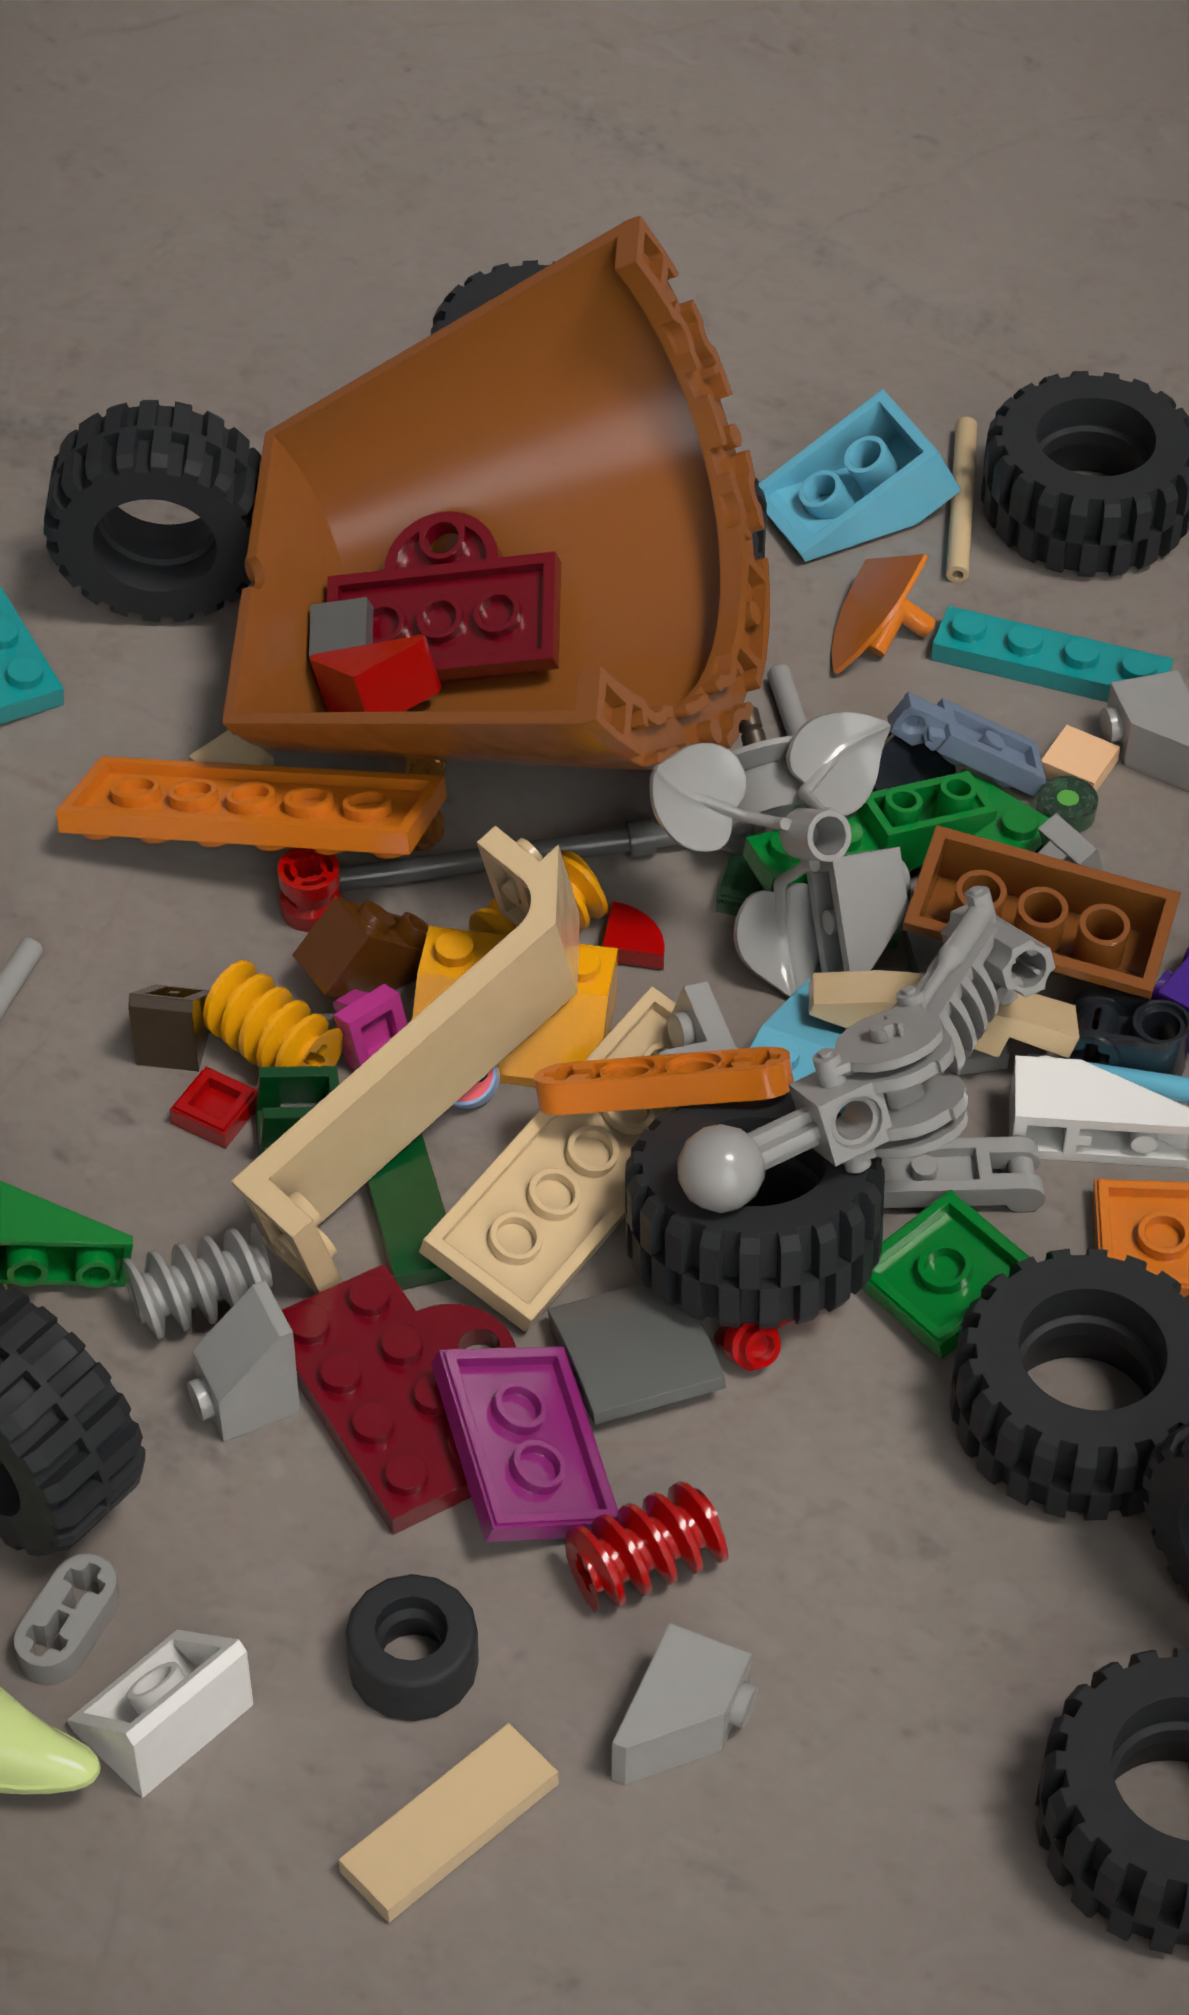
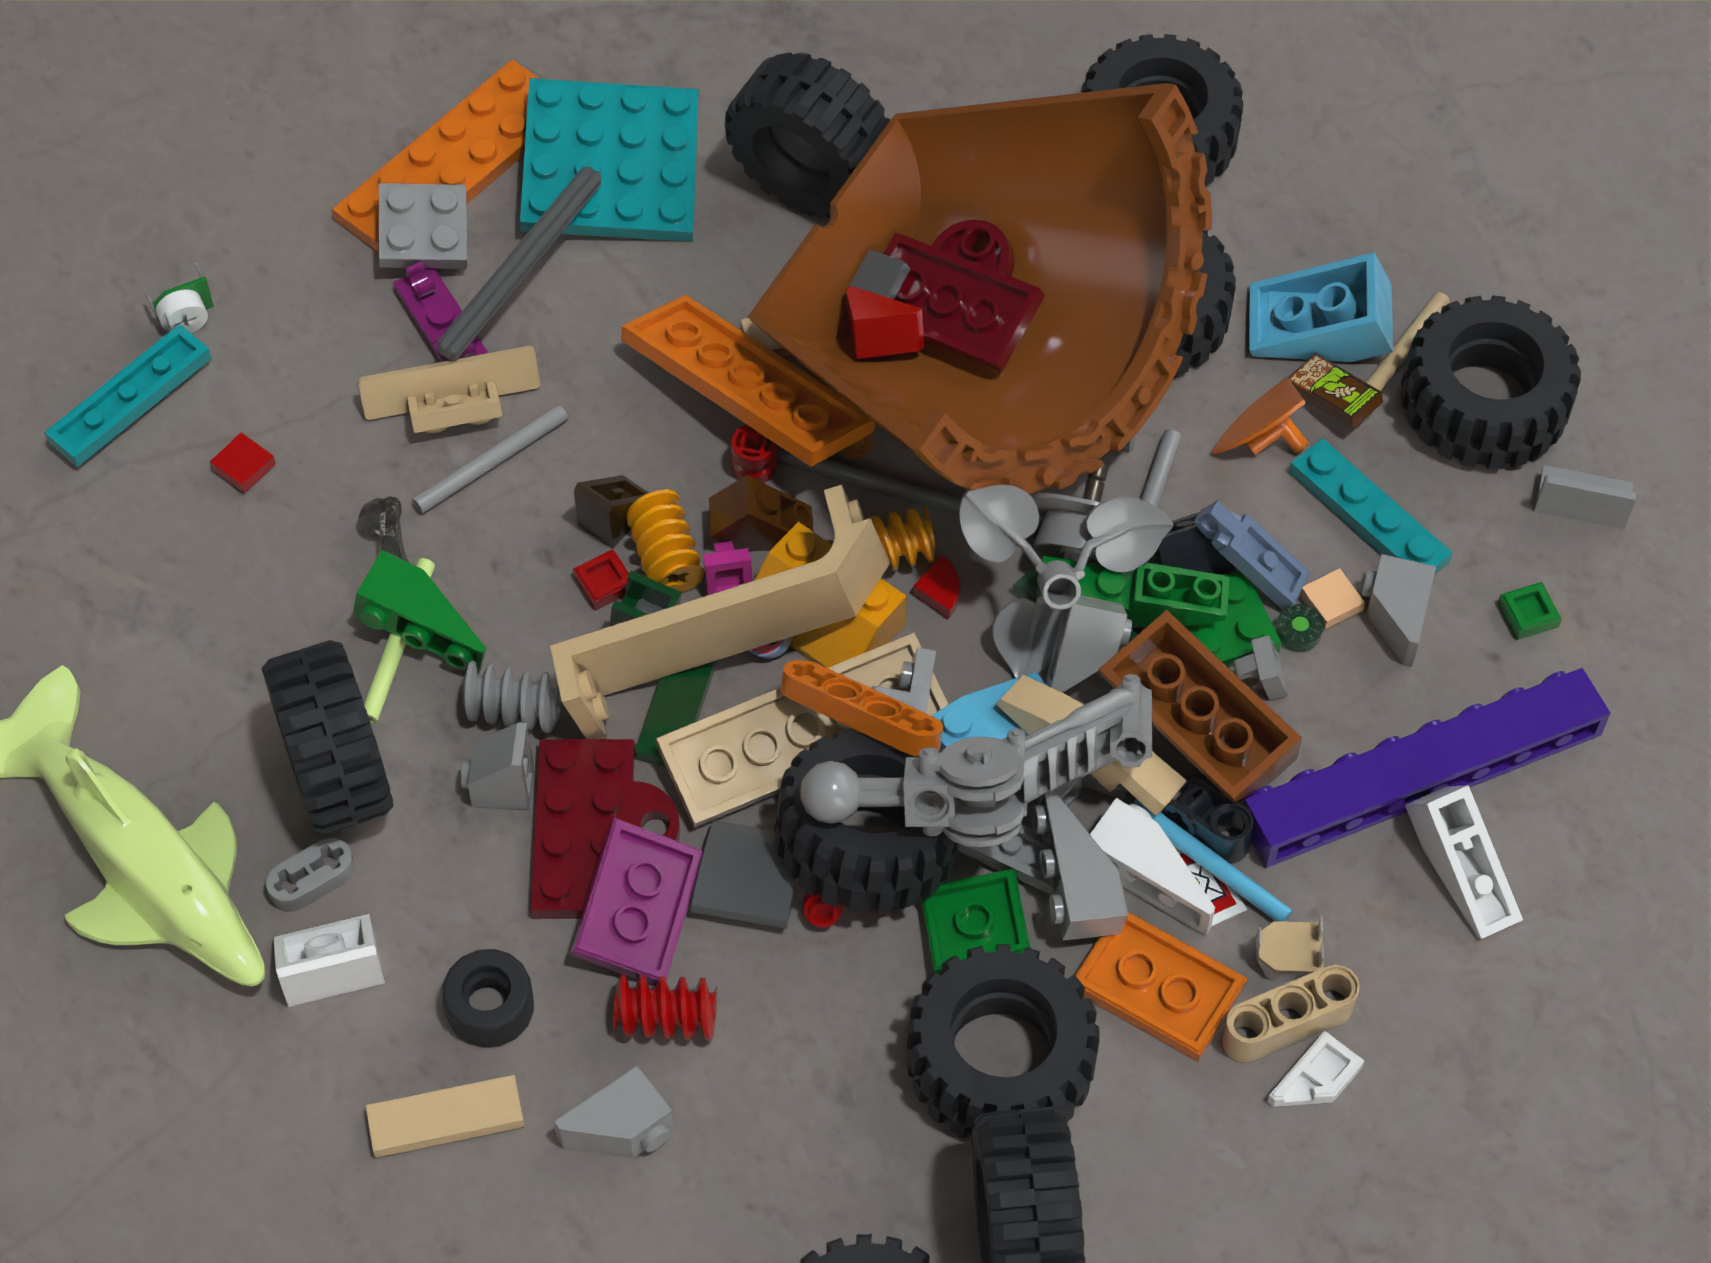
camera: 30 degrees right, 10 degrees up
(951, 551) = (1335, 391): none -> tile
(1044, 1157) = (1083, 878): none -> light grey slope

